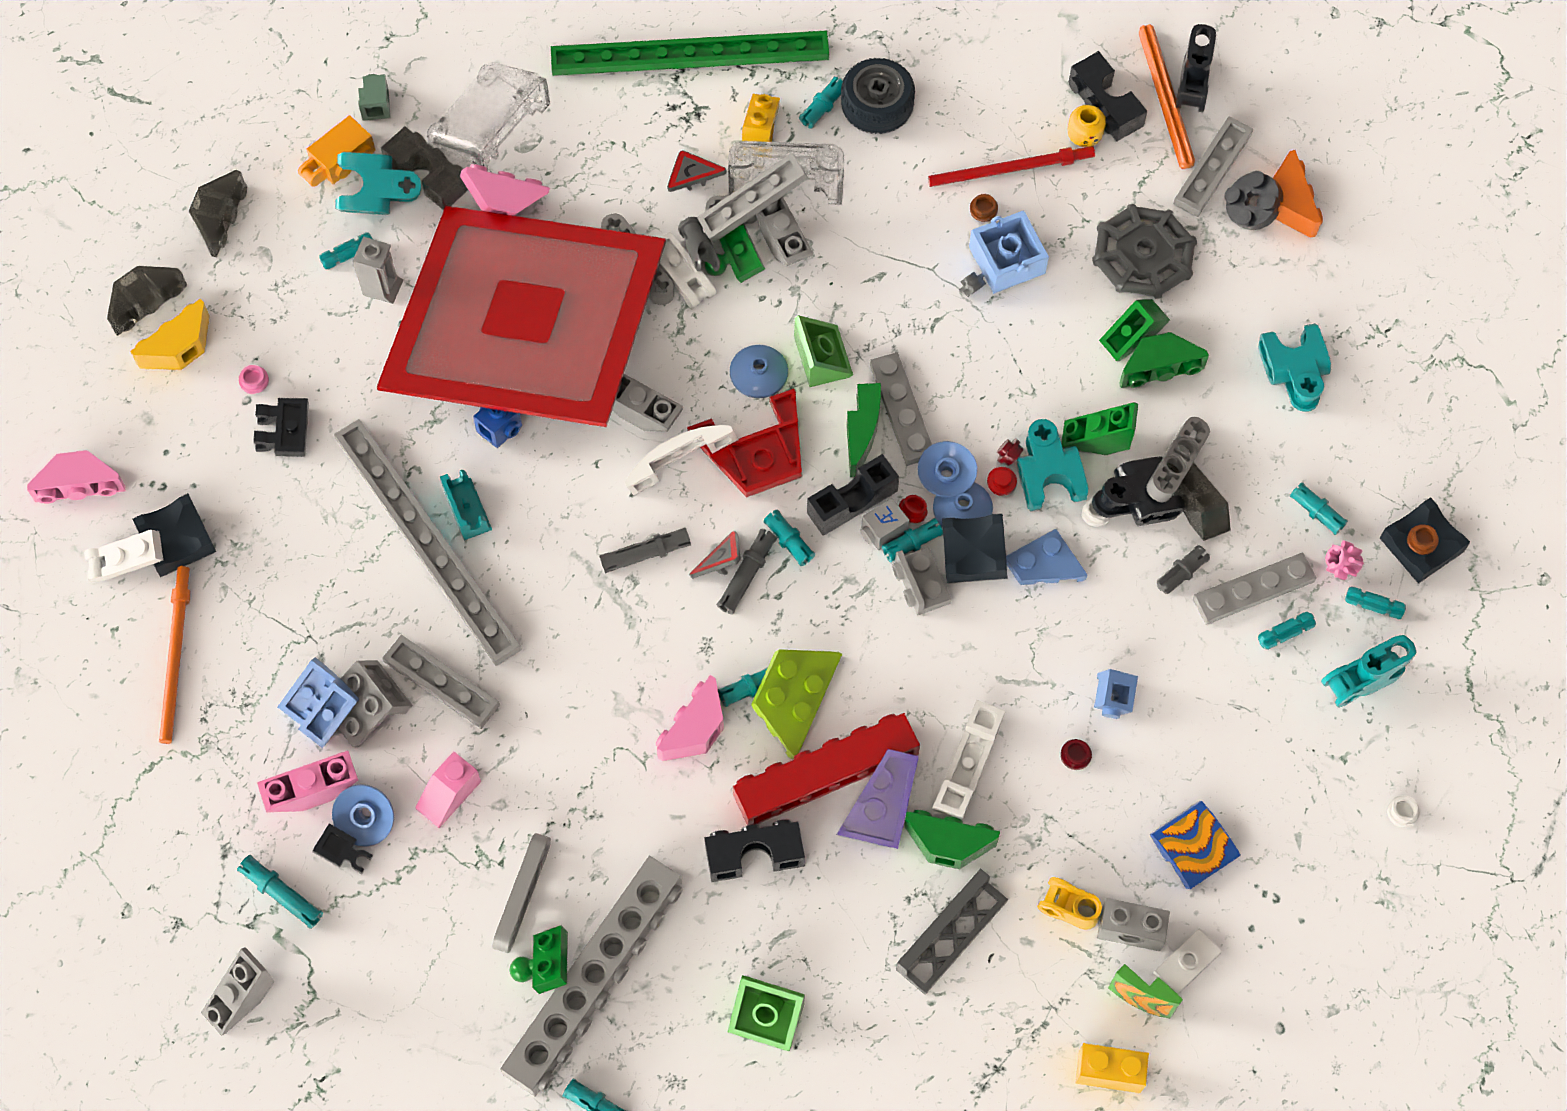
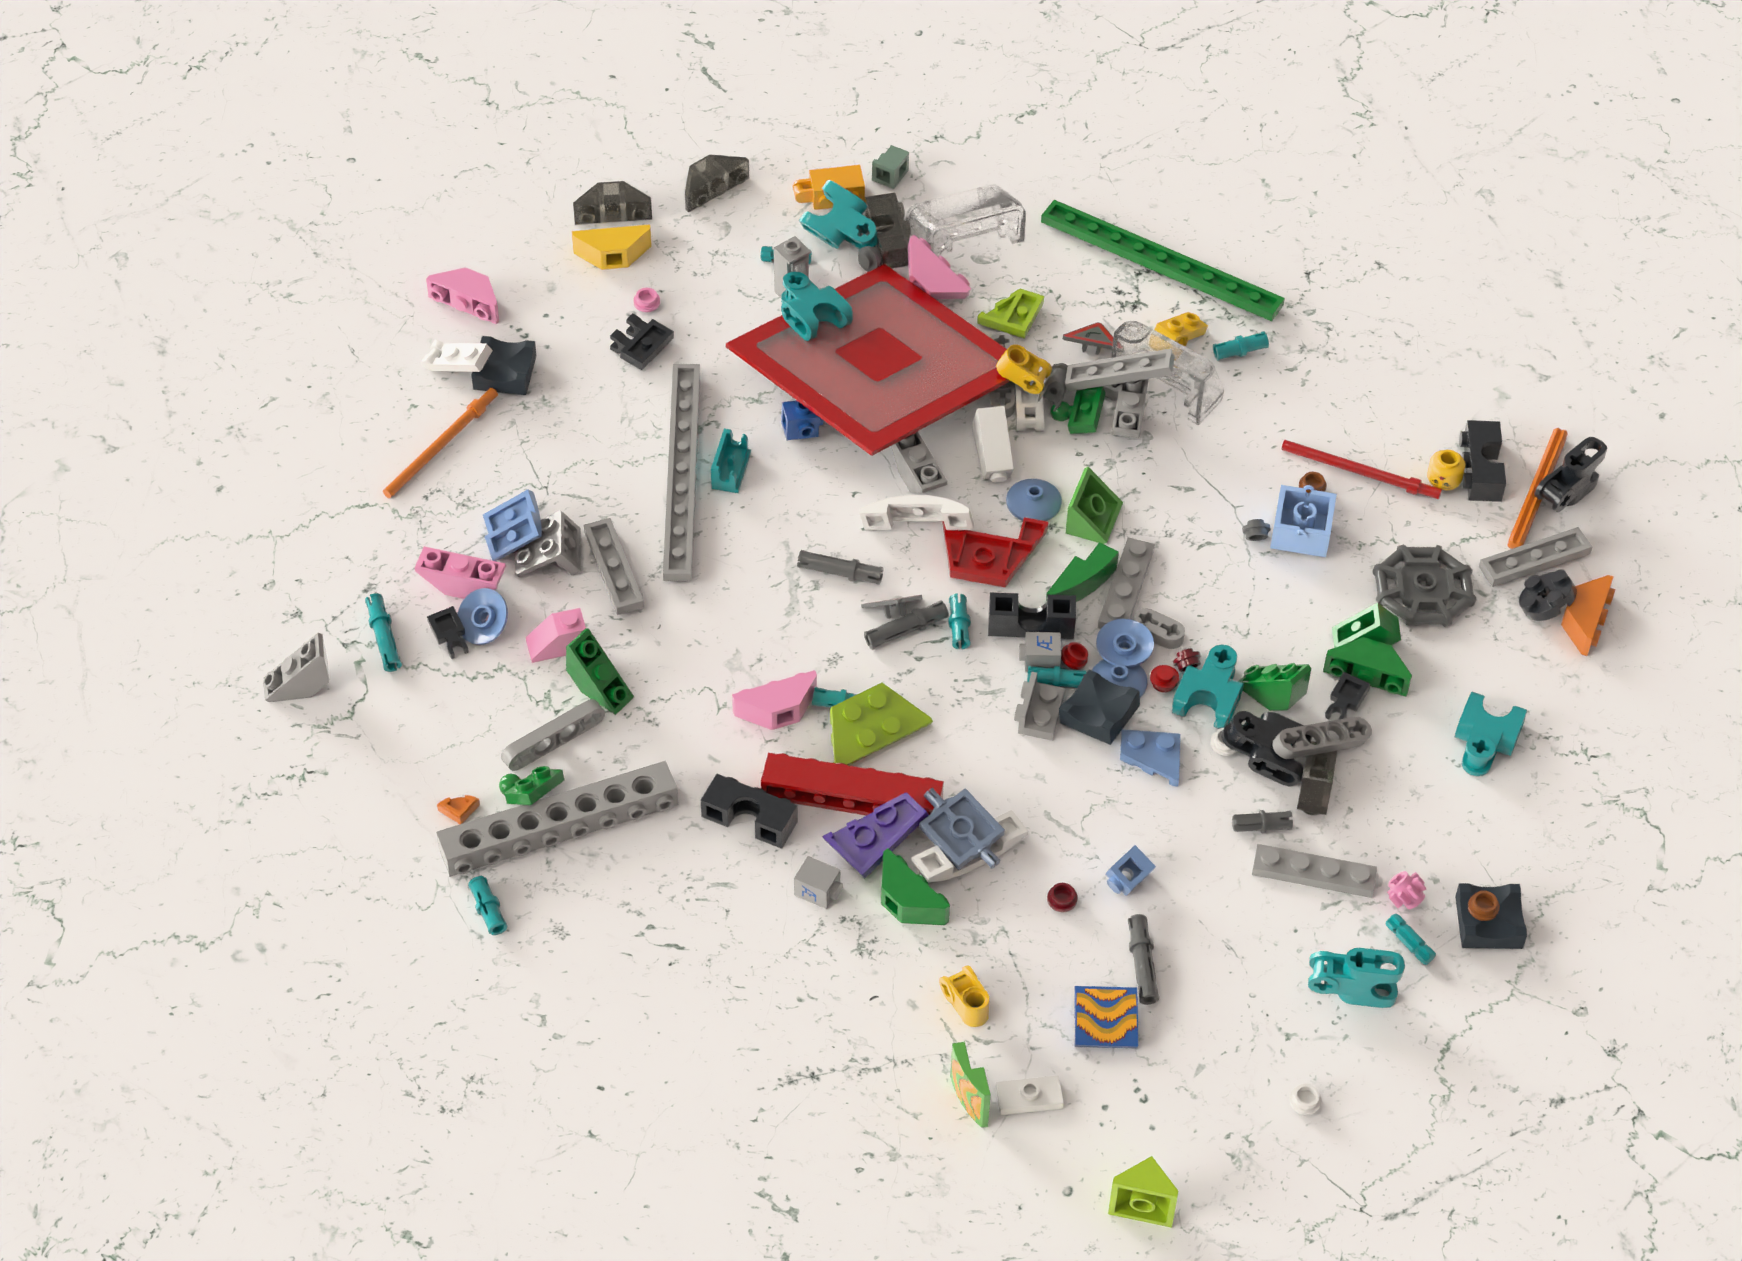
camera: 35 degrees right, 15 degrees down
(424, 296) = (807, 305): none -> teal piece
(428, 208) = (869, 258): none -> dark grey plate
(490, 1023) = (458, 808): none -> orange tile
(519, 807) = (595, 673): none -> green slope
(602, 188) = (1014, 313): none -> lime wing
(667, 248) = (1023, 367): none -> yellow piece
(689, 339) = (993, 443): none -> white slope
(766, 1013) = (666, 921): bright green slope -> none
(867, 882) = (817, 882): none -> light grey brick
(877, 95) = (1288, 362): black wheel -> none
(938, 928) = (854, 946): dark grey fence -> none
(954, 749) = (961, 828): none -> sand blue plate
(960, 432) = (1161, 627): none -> light grey beam
(1112, 1068) = (901, 1124): yellow brick -> none
(1133, 924) = (1004, 1037): light grey brick -> none
(1163, 399) = (1347, 695): none -> black plate
(1182, 766) = (1141, 947): none -> dark grey pin
(1286, 630) = (1315, 914): teal axle -> none
(1318, 508) = (1418, 845): teal pin -> none
(1356, 992) = (1144, 1194): none -> lime slope

